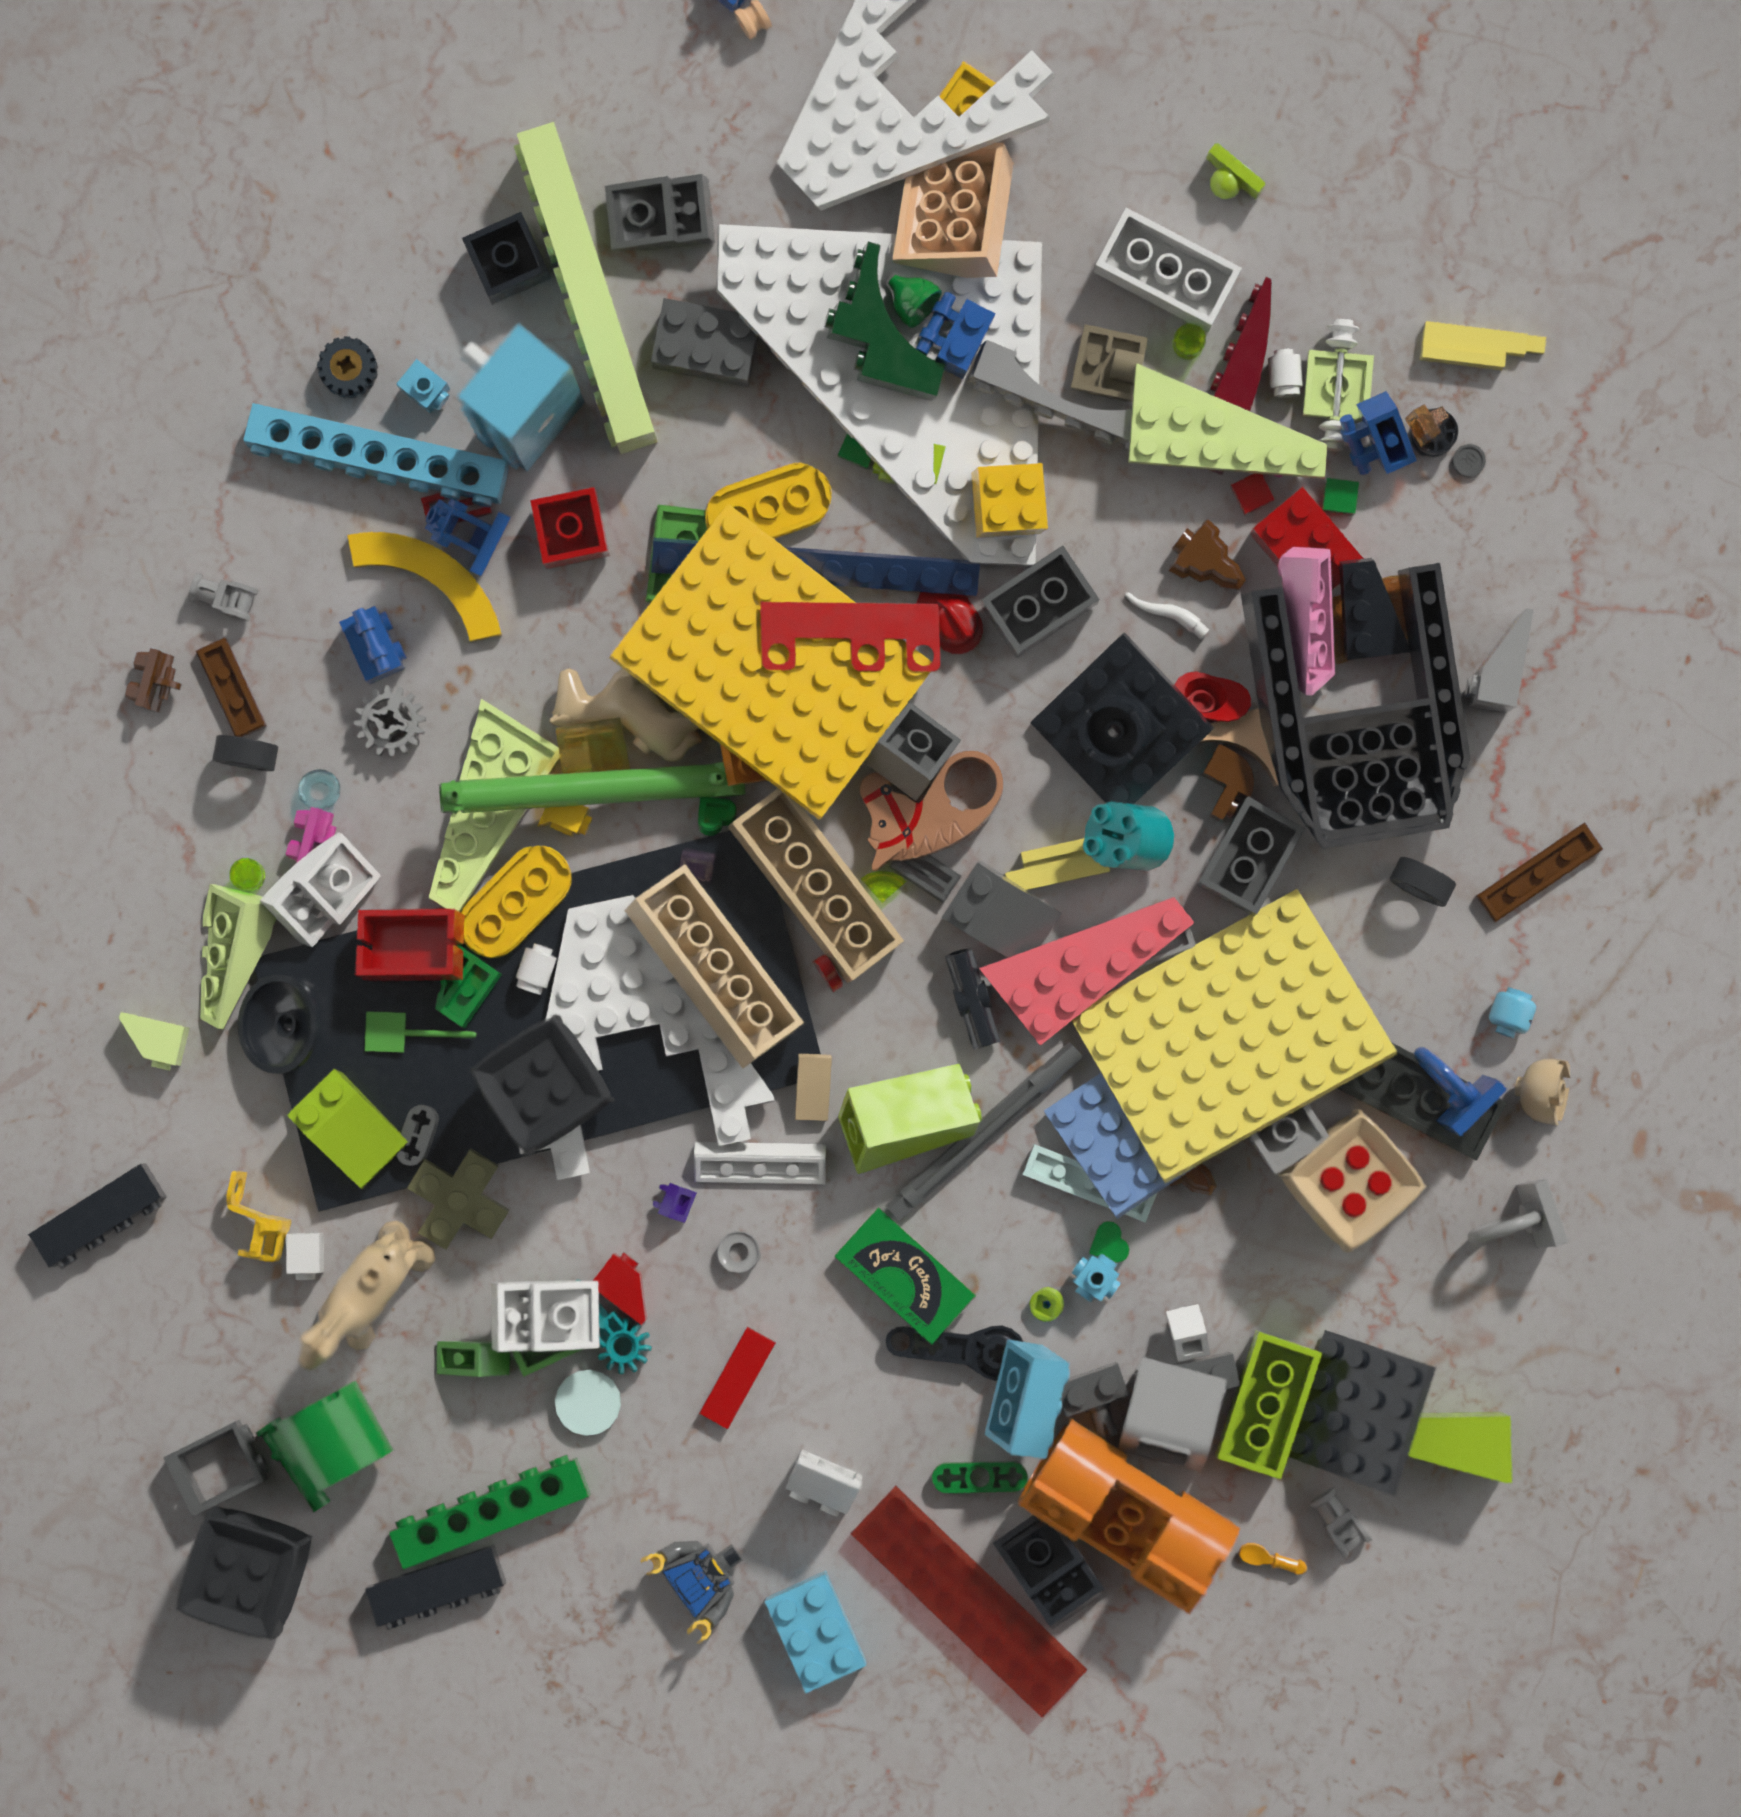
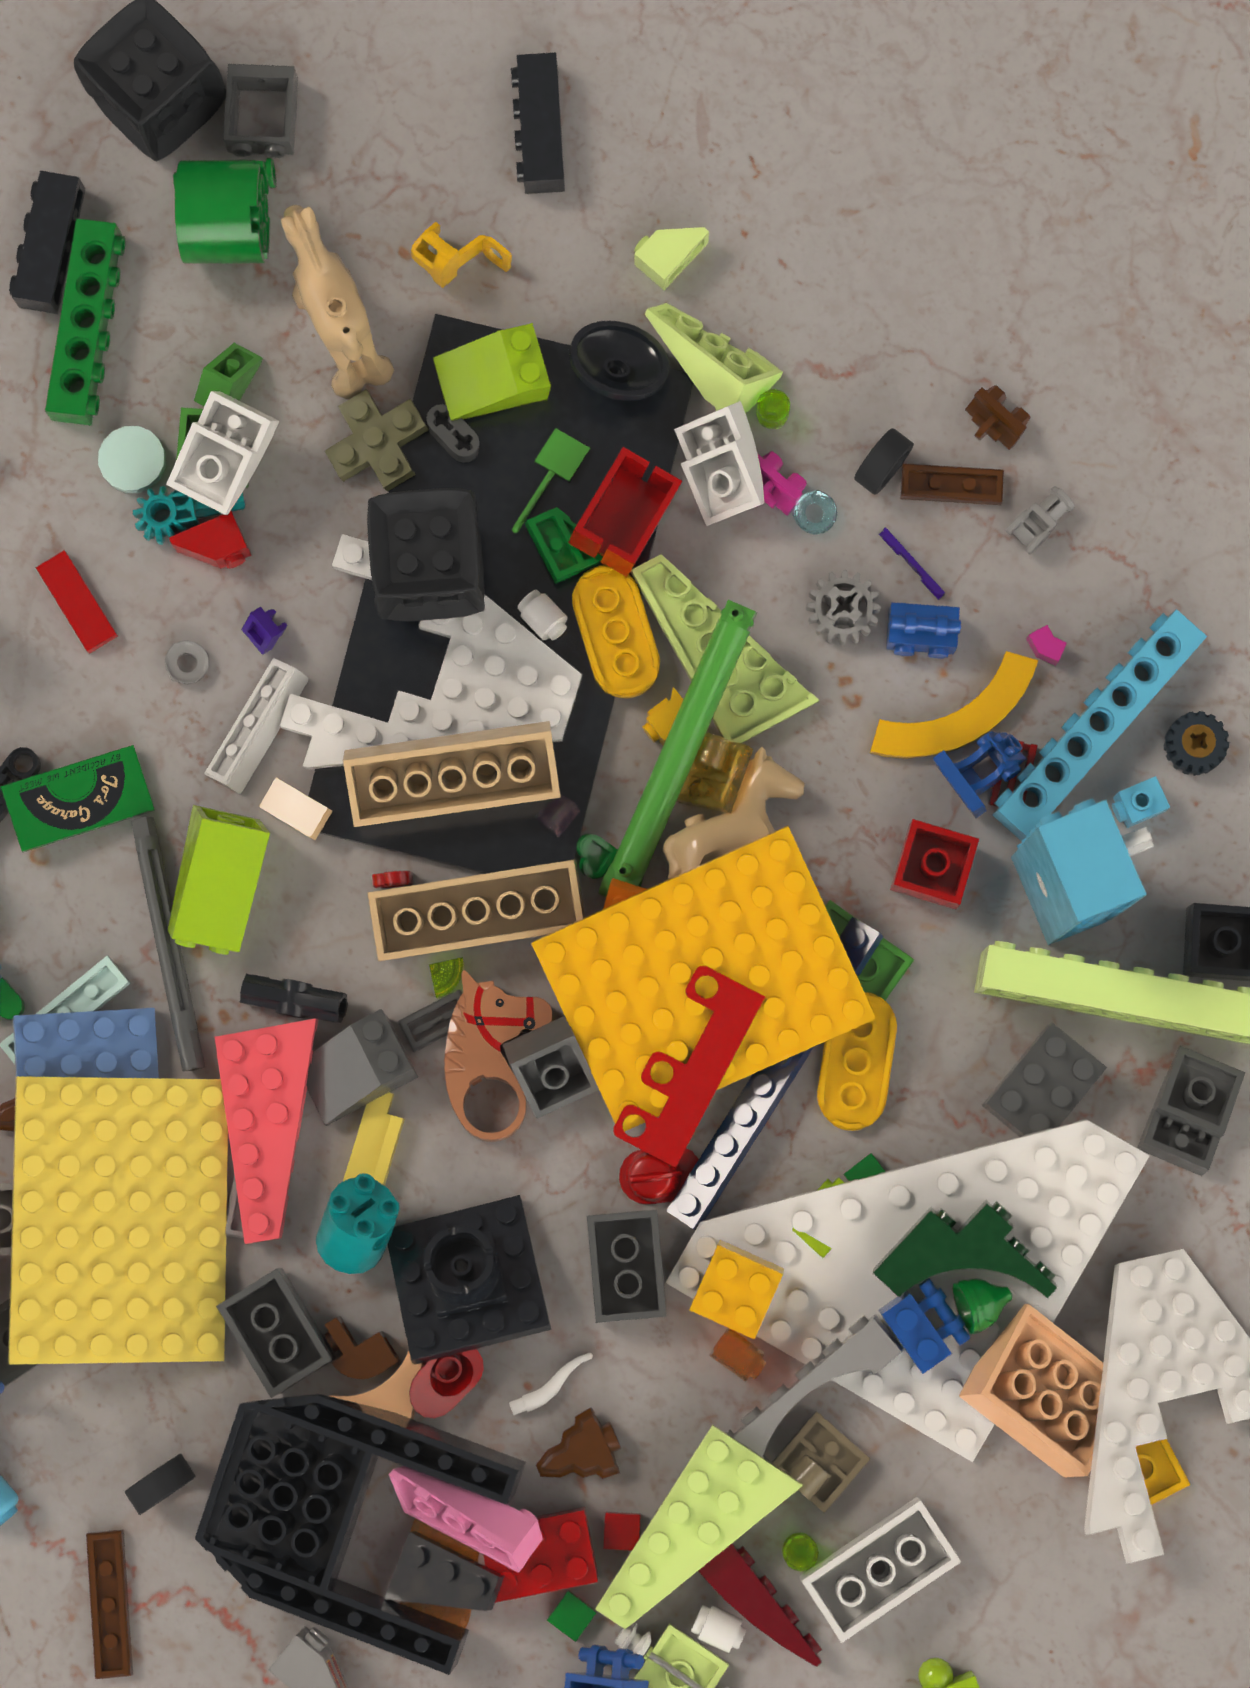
camera: 120 degrees right, 5 degrees down
(305, 1254) = (404, 281): white brick -> none
(312, 703) = (896, 546): none -> dark purple piece
(330, 534) = (1045, 645): none -> dark pink piece
(1061, 472) = (738, 1355): none -> clear orange brick

